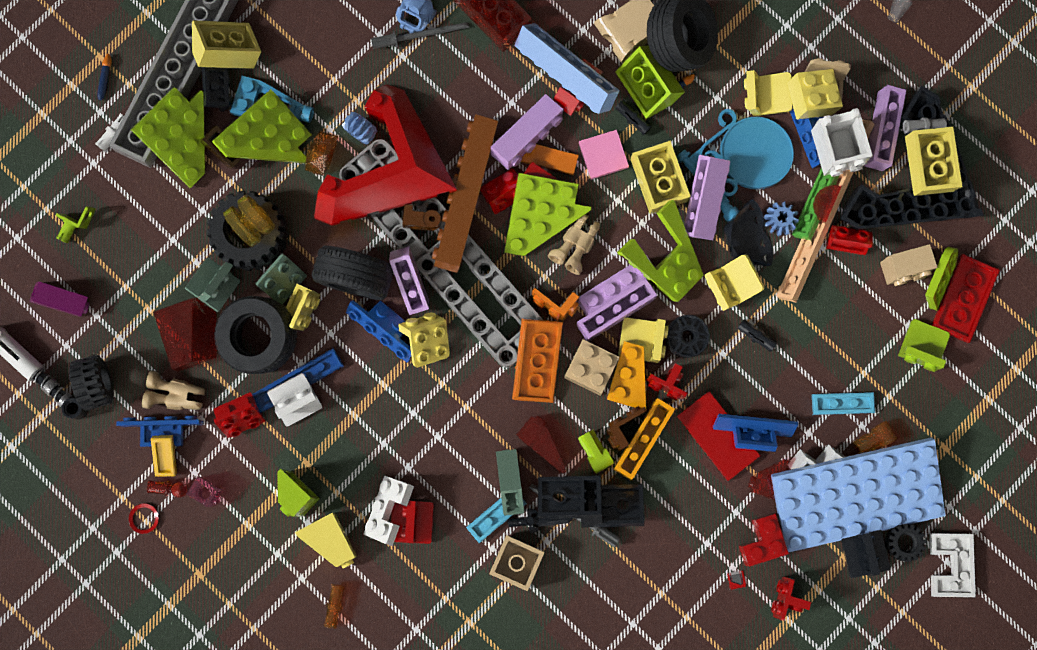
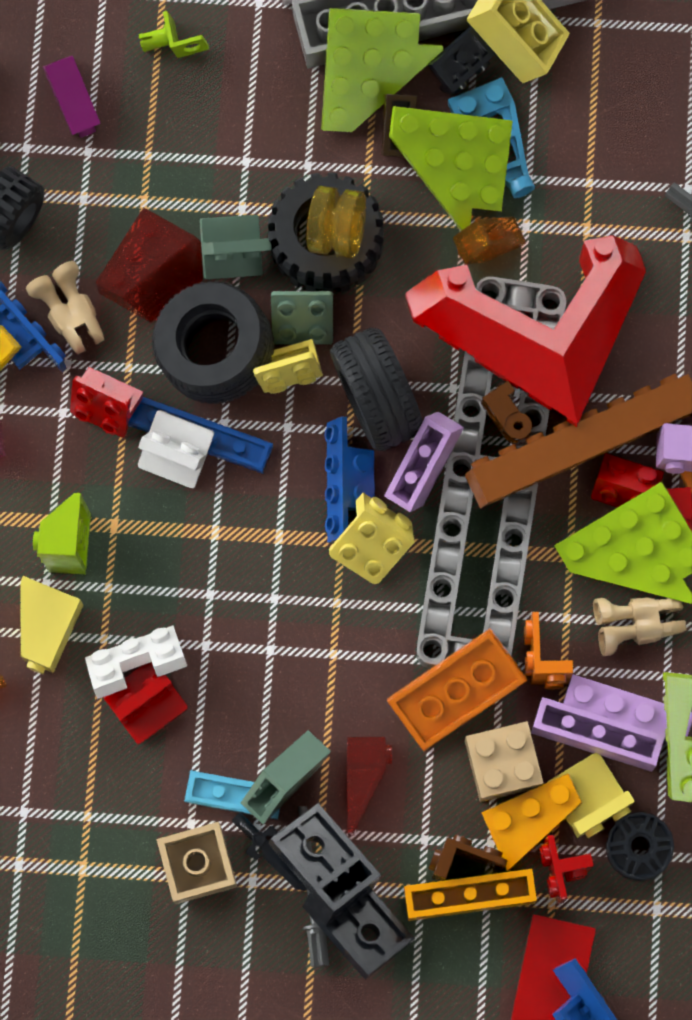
camera: 55 degrees right, 5 degrees down
(359, 128) = (555, 257): medium blue gear -> none
(597, 455) = (404, 856): lime piece -> none

